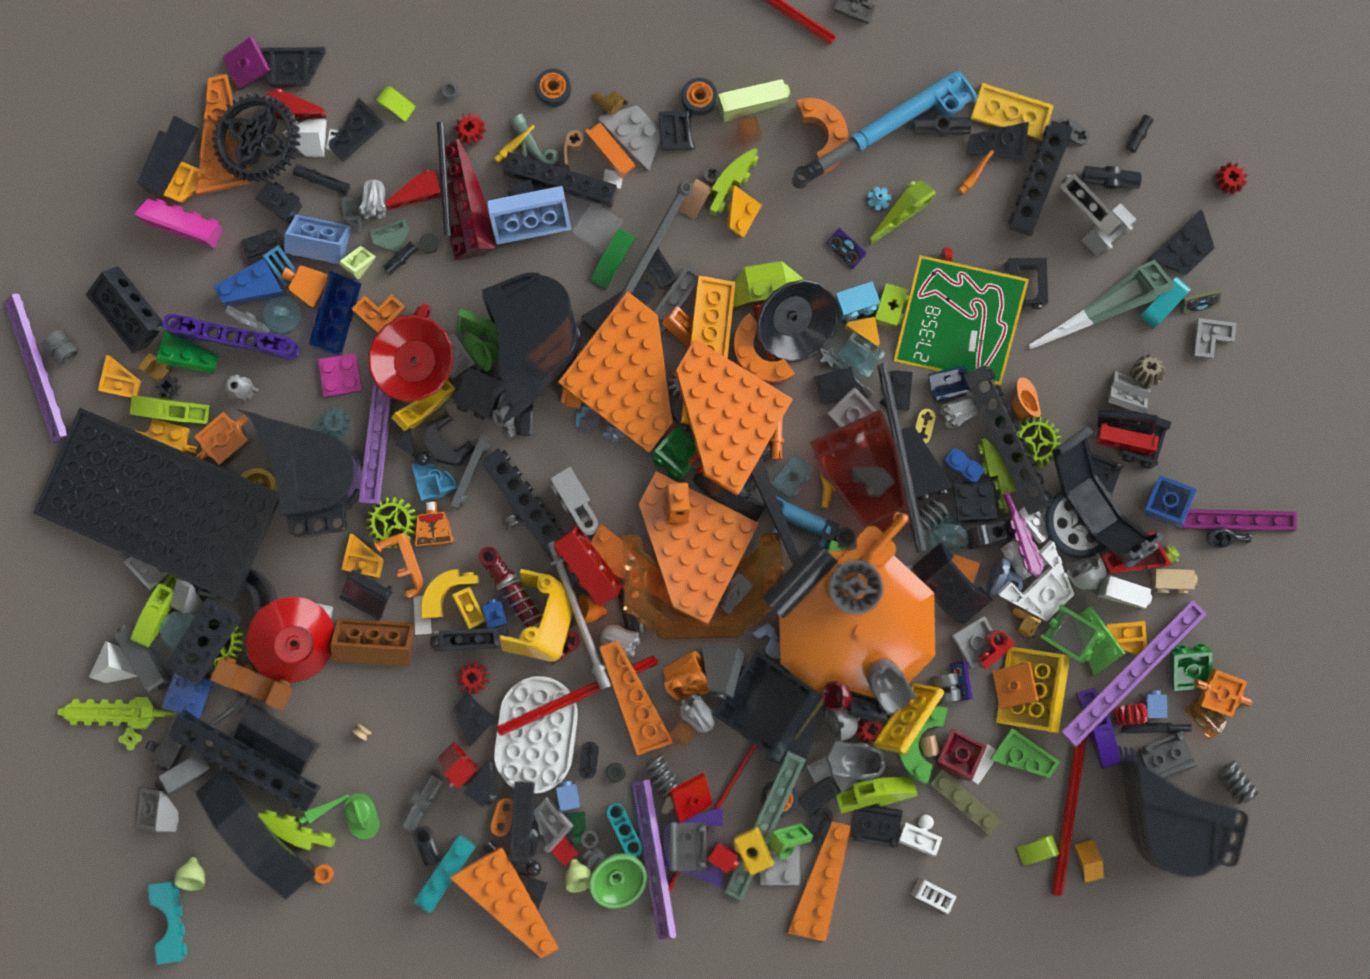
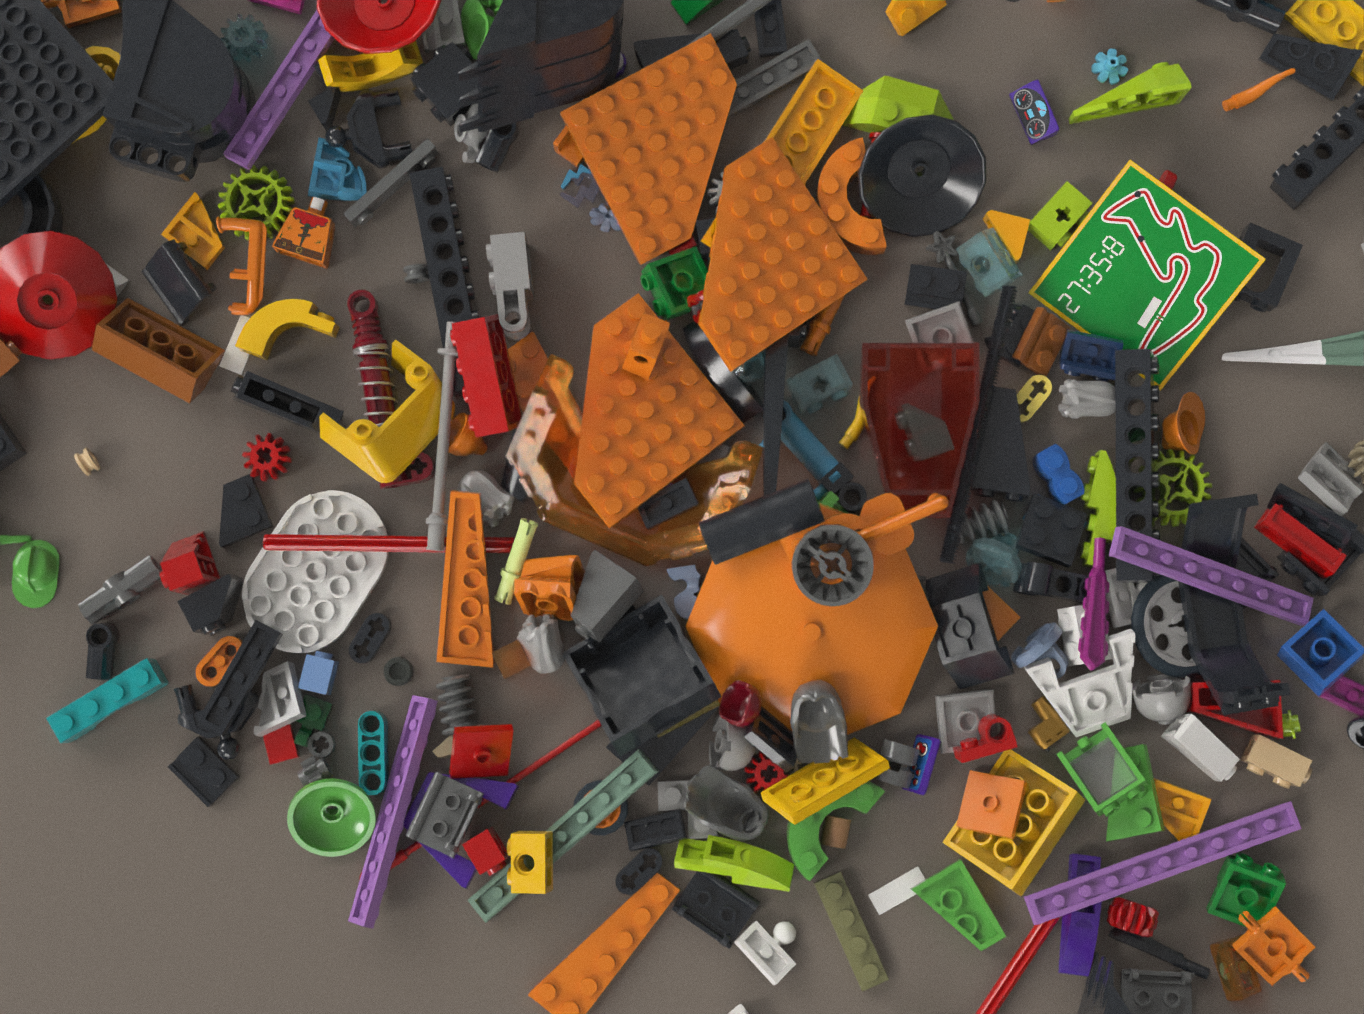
camera: 30 degrees right, 0 degrees up
(469, 608) = (305, 363): yellow brick -> none
(494, 613) = (335, 385): blue brick -> none
(500, 891) = (168, 759): orange wing -> none
(577, 877) = (279, 786): yellowish green helmet -> none
(657, 671) = (515, 560): none -> yellowish green pin
(679, 325) = (760, 112): orange slope -> none
(783, 871) = (565, 904): light grey plate -> none
(786, 839) = (581, 867): bright green plate -> none
(857, 302) = (1015, 188): medium azure brick -> none
(915, 388) = (1041, 342): none -> dark orange plate
(960, 755) = (873, 864): dark red slope -> none
(1083, 486) = (1210, 576): none -> medium lavender plate
(1155, 704) = (1173, 919): medium blue brick -> none

